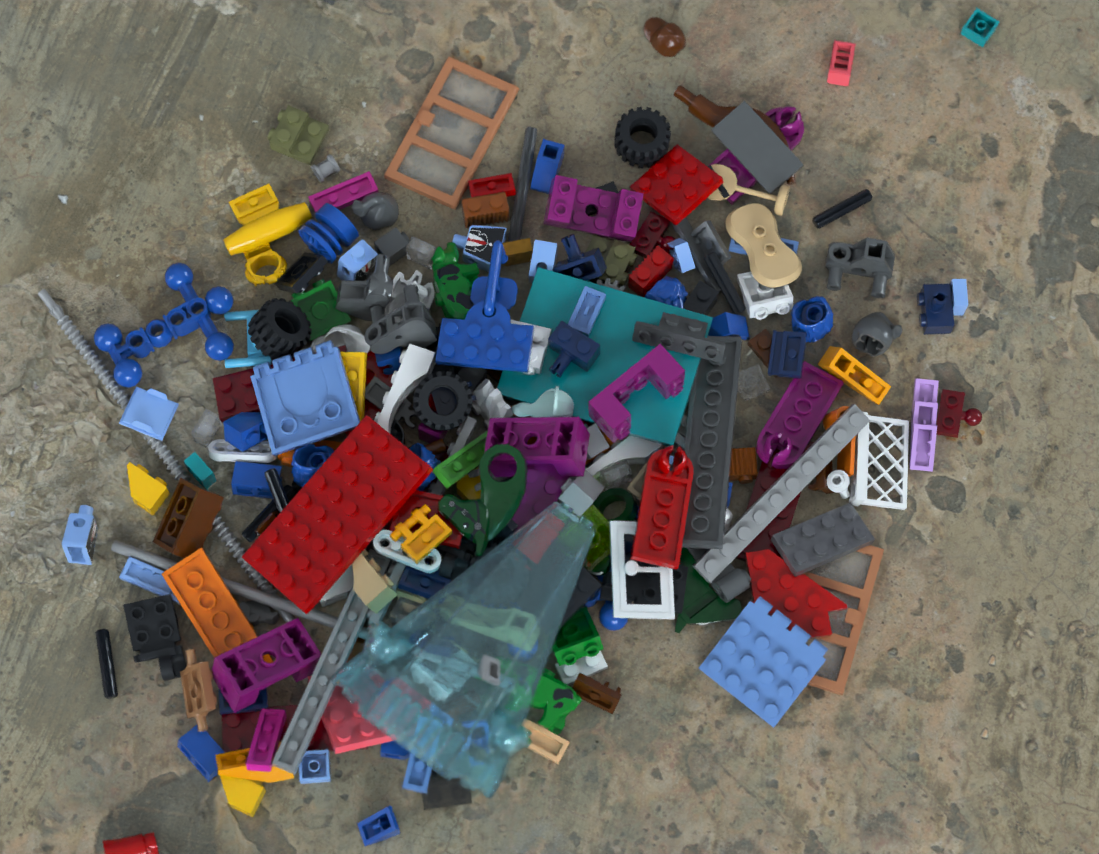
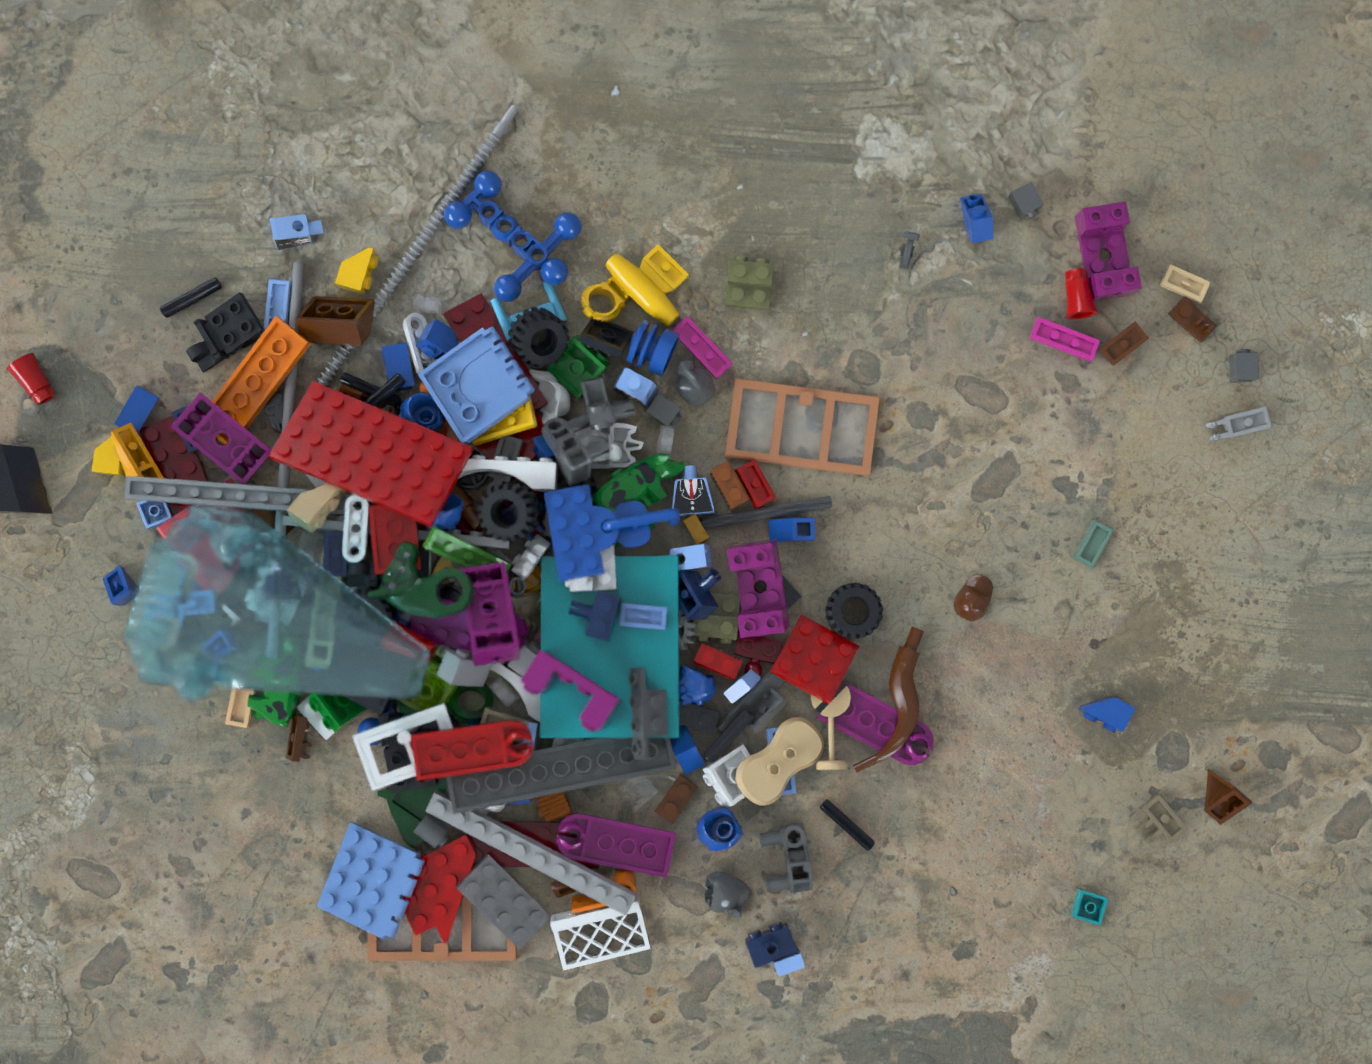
camera: 75 degrees right, 15 degrees up
(149, 412) = (428, 248): light blue piece -> none
(197, 690) = (183, 386): medium nougat plate -> none
(200, 470) = (388, 314): teal piece -> none
(266, 740) = (153, 462): dark pink plate -> none
(325, 168) = (722, 321): light grey bush -> none
(423, 540) = (368, 542): light orange plate -> none
(489, 670) = (230, 646): light grey slope -> none
(550, 404) = (536, 613): light aqua piece -> none
(757, 147) = (877, 725): dark grey tile -> none
(787, 354) = (673, 816): dark blue plate -> none
(838, 75) = (990, 783): coral slope -> none
(838, 482) = (562, 901): white plate -> none
(854, 374) = (677, 884): light orange slope -> none
(923, 425) = (650, 964): lavender slope -> none
(951, 414) = (670, 987): dark red plate -> none

